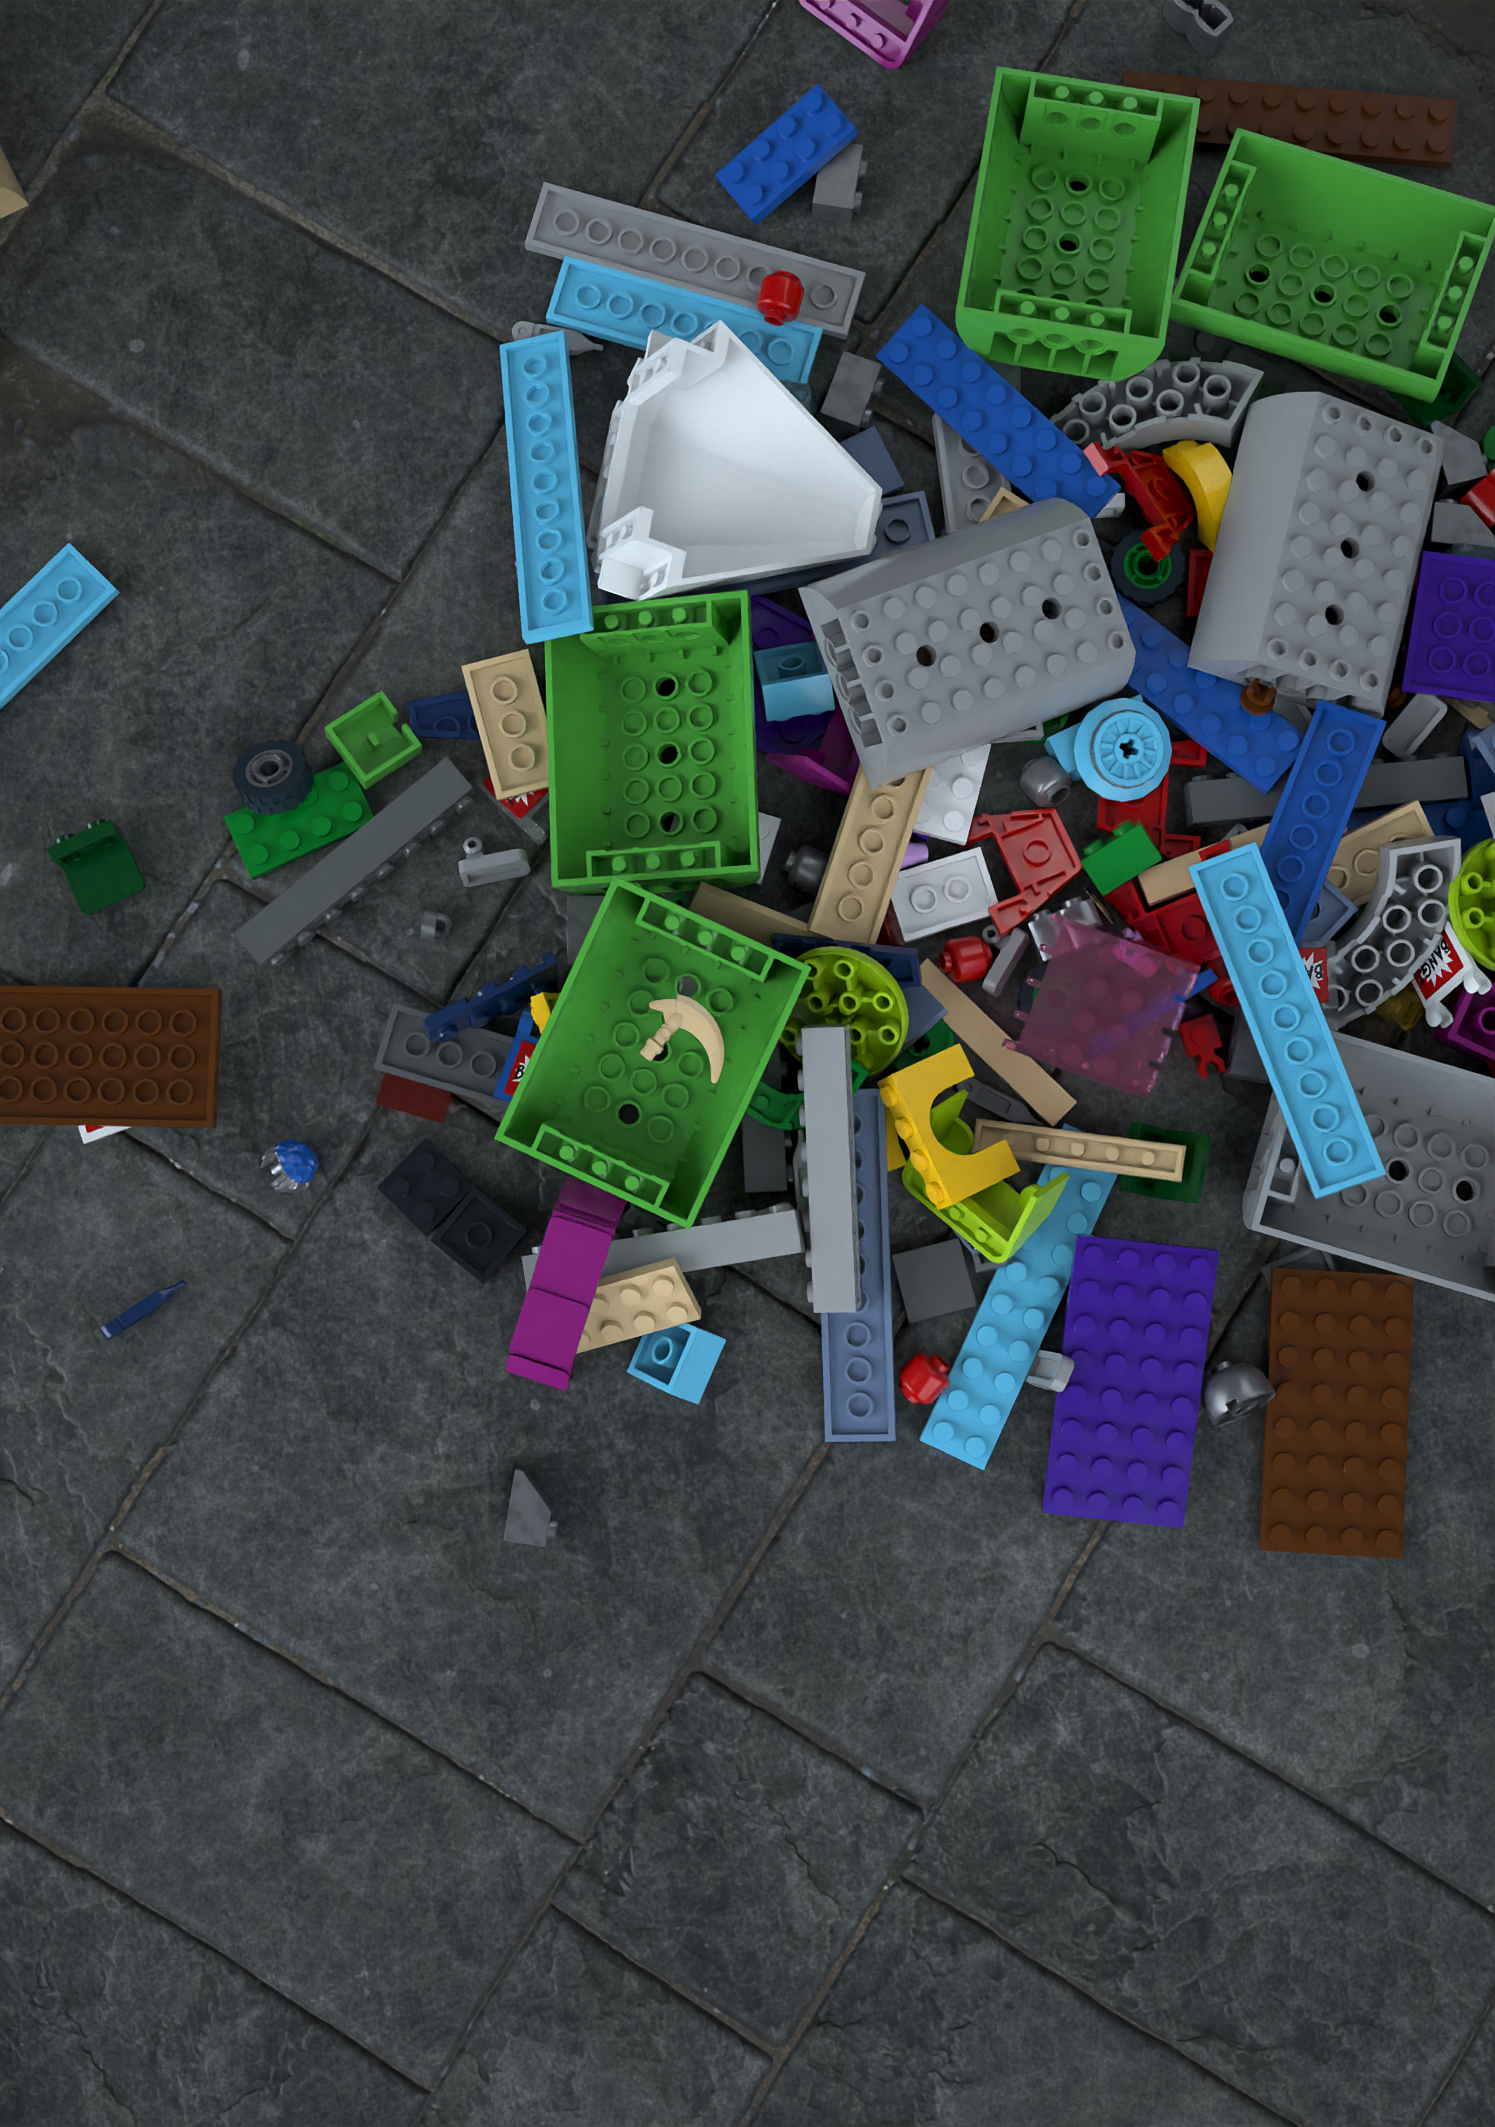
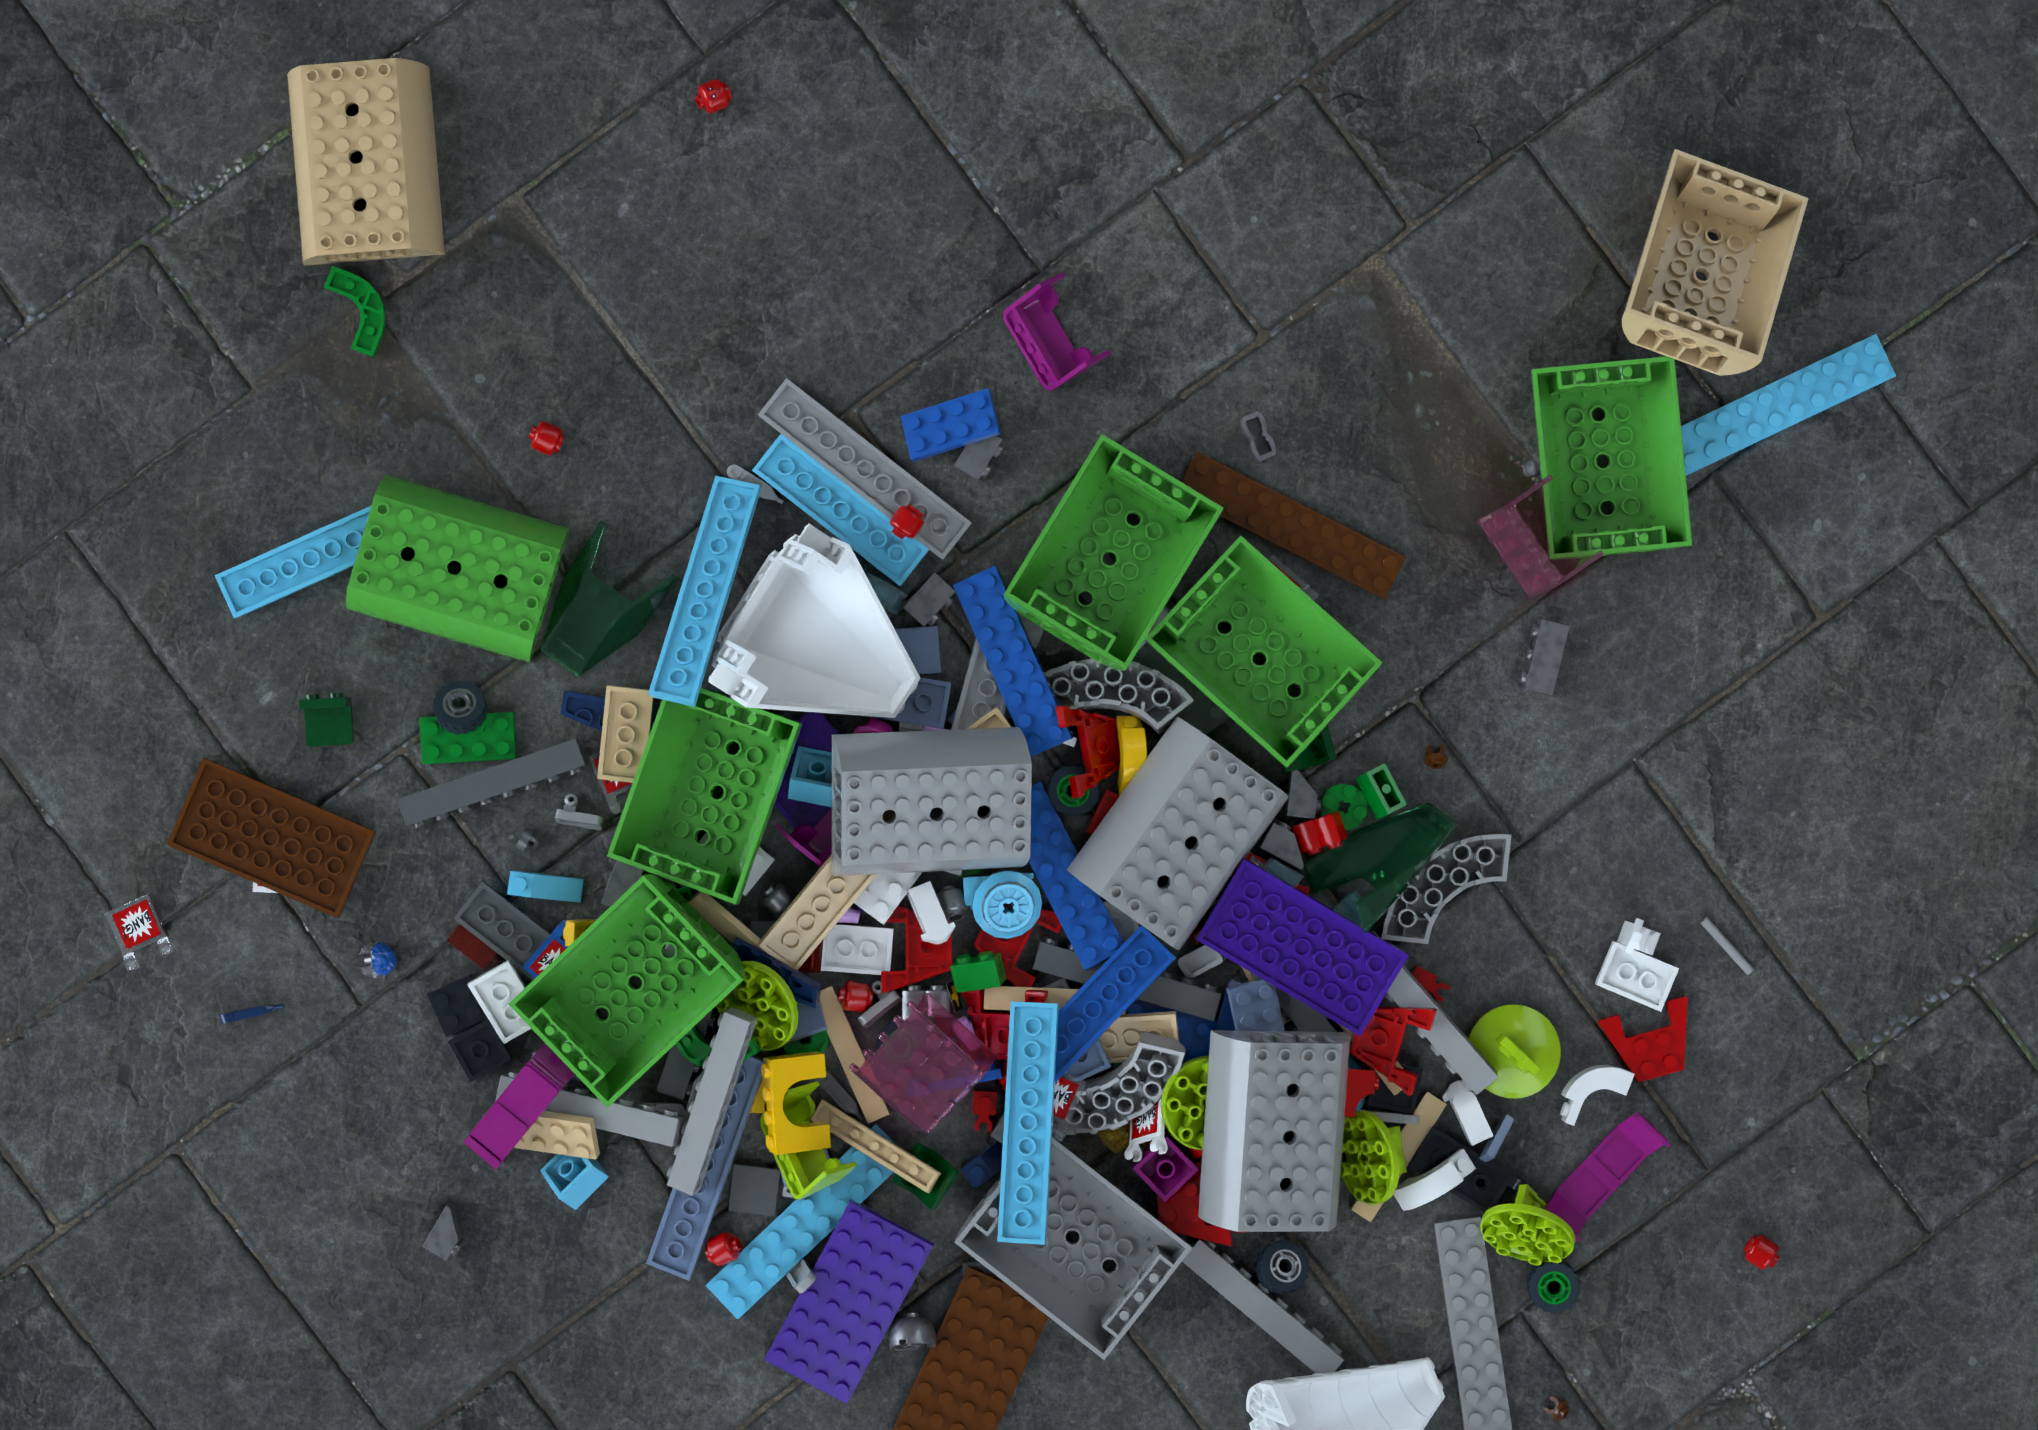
camera: 20 degrees right, 5 degrees up
(203, 638) = (484, 542): none -> bright green slope
(254, 382) = (546, 438): none -> red head
(371, 741) = (532, 707): bright green piece -> none
(413, 585) = (594, 618): none -> clear green windscreen
(467, 976) = (545, 886): none -> medium azure slope
(486, 1163) = (494, 993): none -> white plate
(493, 1001) = (567, 905): dark blue wing -> none
(694, 1018) = (658, 981): tan piece -> none
(1022, 800) = (930, 914): none -> white piece
(1237, 1118) = (983, 1165): none -> dark blue slope
(1257, 698) = (1101, 910): reddish brown plate -> none

